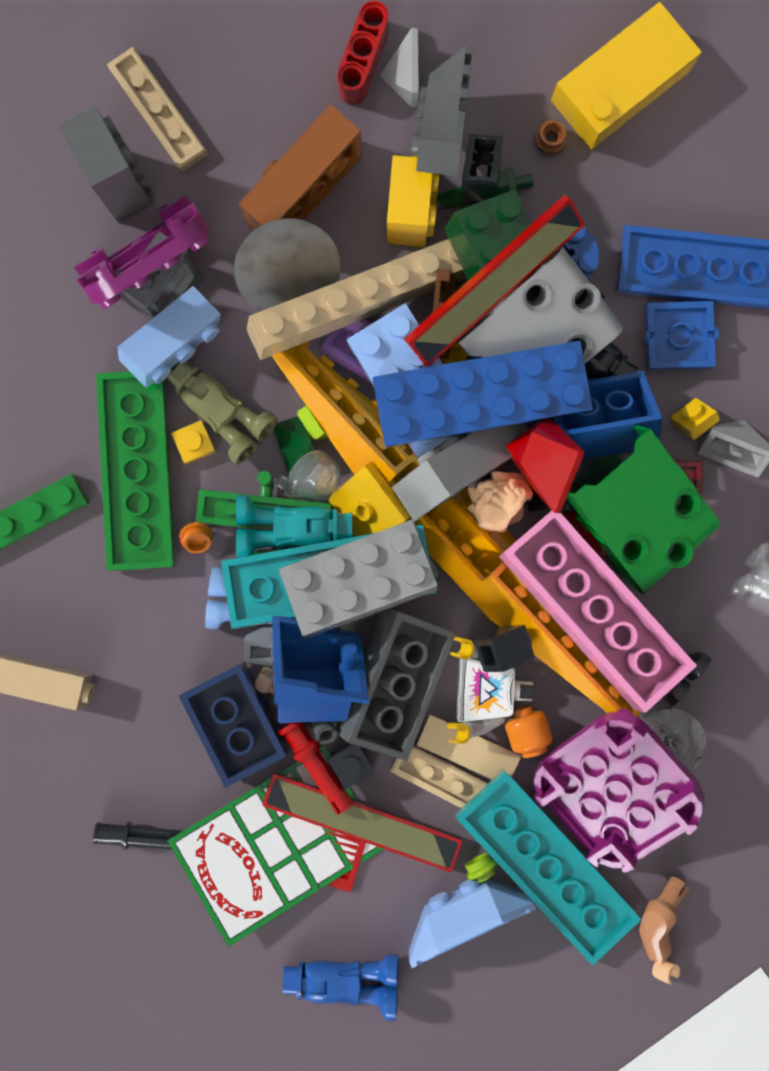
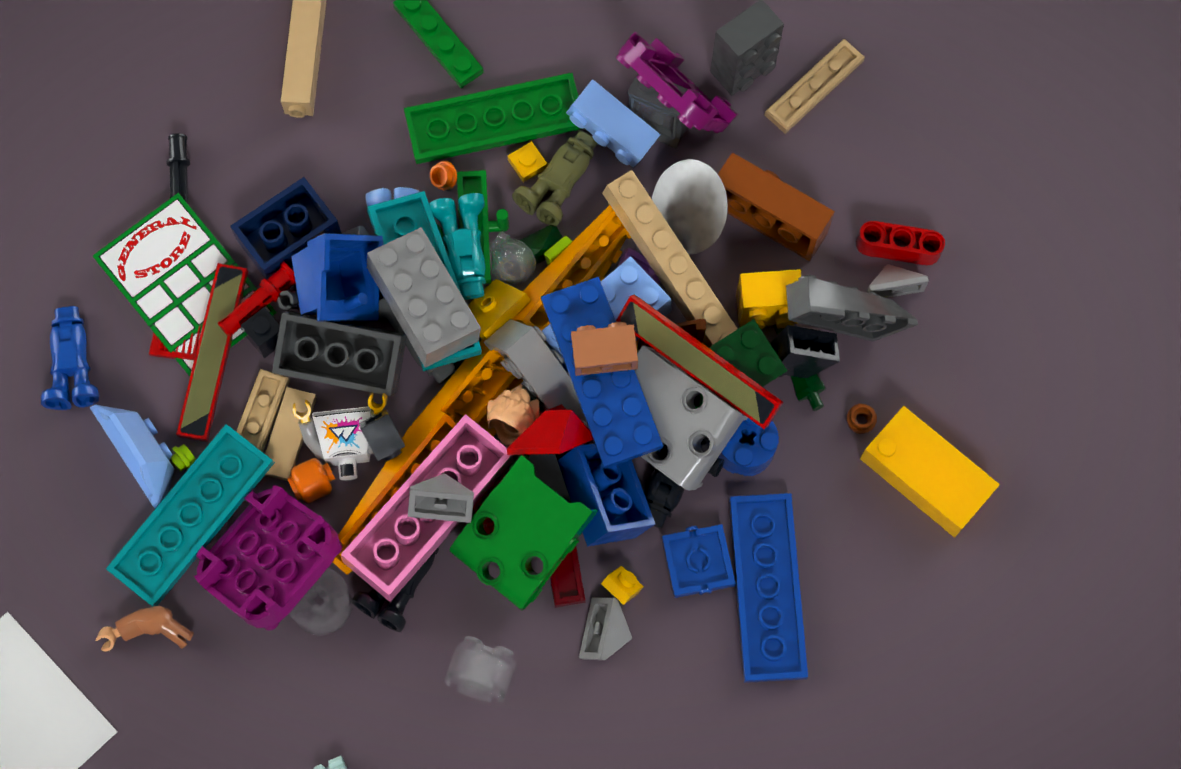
camera: 75 degrees right, 15 degrees down
(470, 381) = (604, 349): none -> nougat brick
(601, 592) = (441, 500): none -> light grey slope

